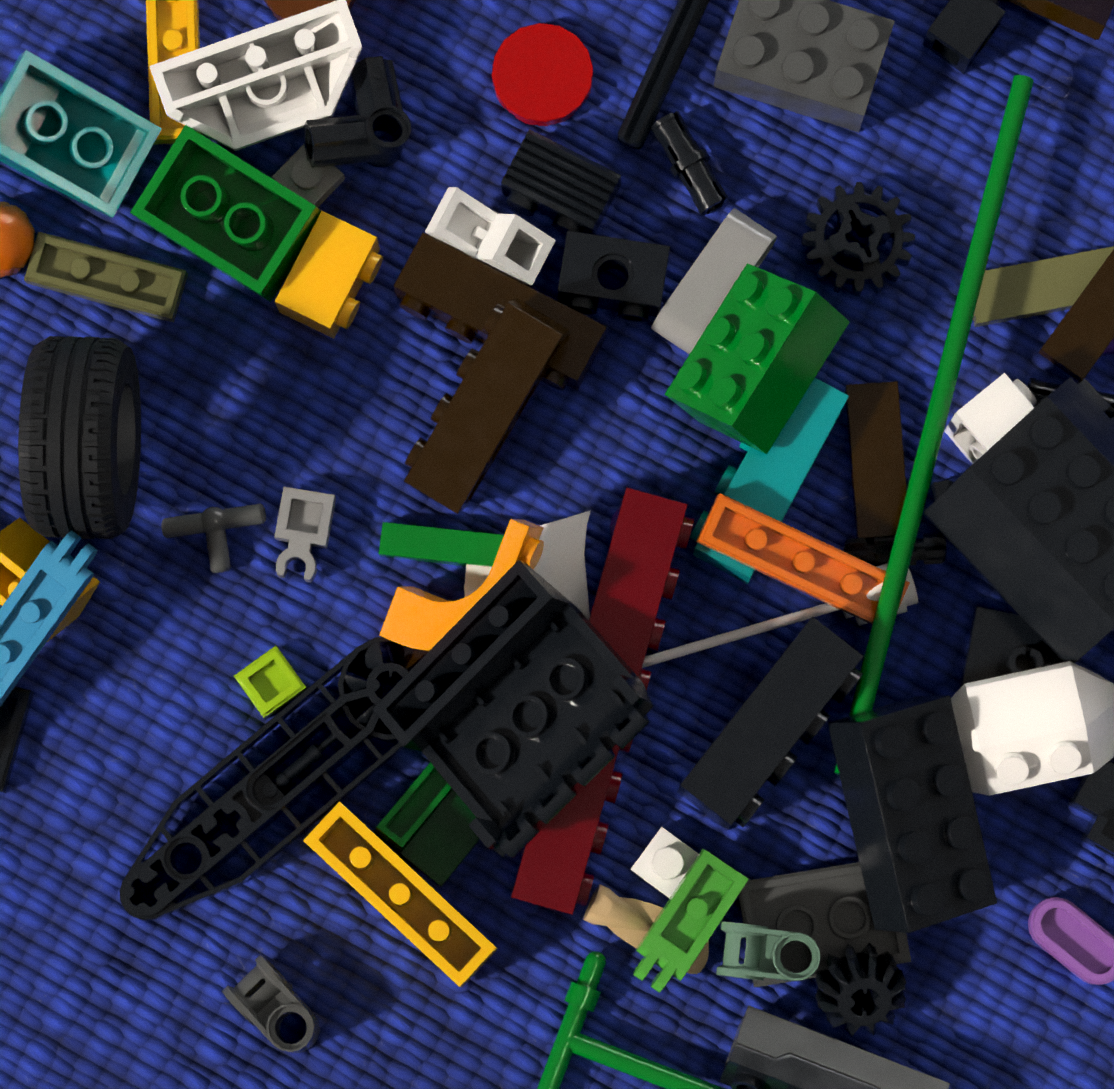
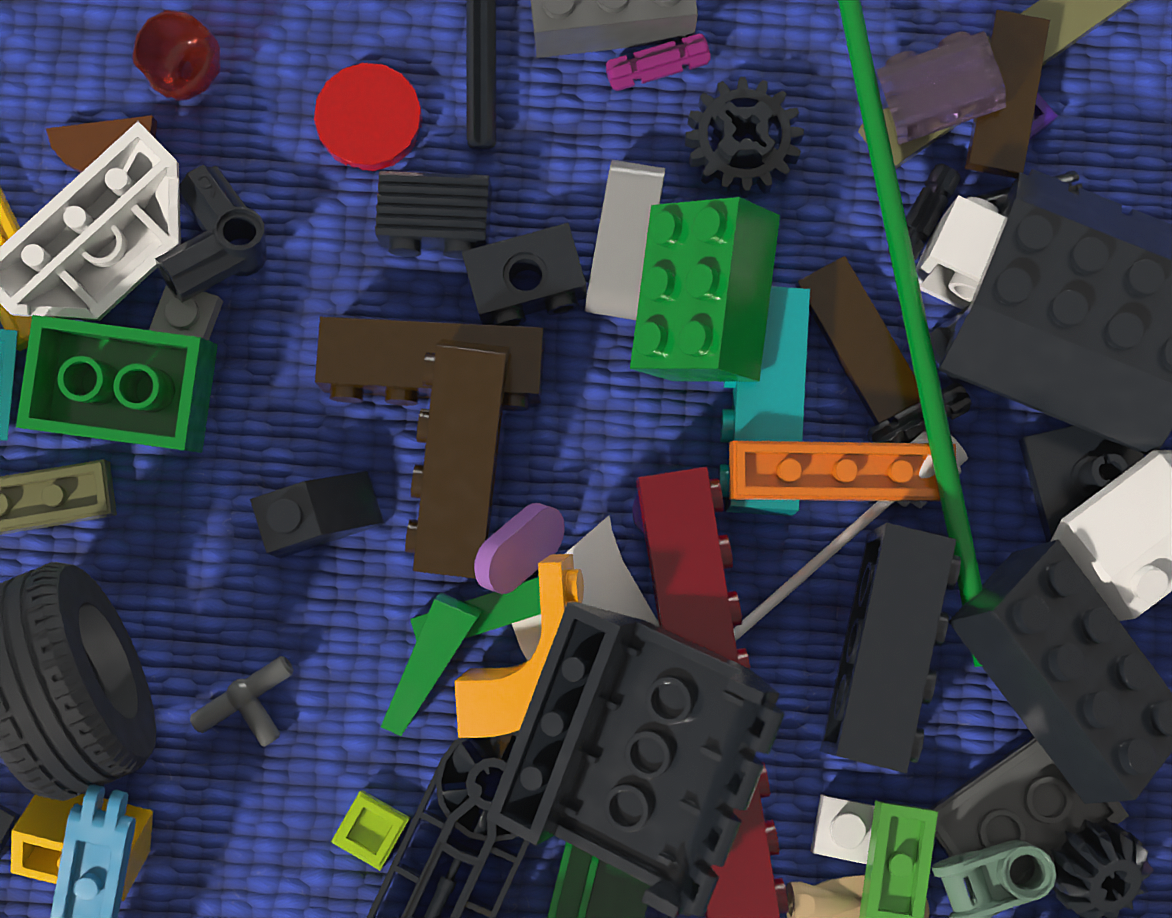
camera: 25 degrees left, 0 degrees up
(303, 522) = (331, 656): light grey plate -> none
(329, 275) = (247, 400): yellow brick -> none
(345, 397) = (316, 512): none -> black slope
(394, 553) = (435, 647): none -> green piece
(492, 238) = (400, 291): white brick -> none
(493, 502) = (518, 547): none -> medium lavender tile
(689, 163) = (548, 137): black pin -> none
(816, 139) = (658, 62): none -> magenta axle
(1011, 358) = (930, 205): none -> black axle
(1043, 272) = (941, 86): none -> clear purple brick

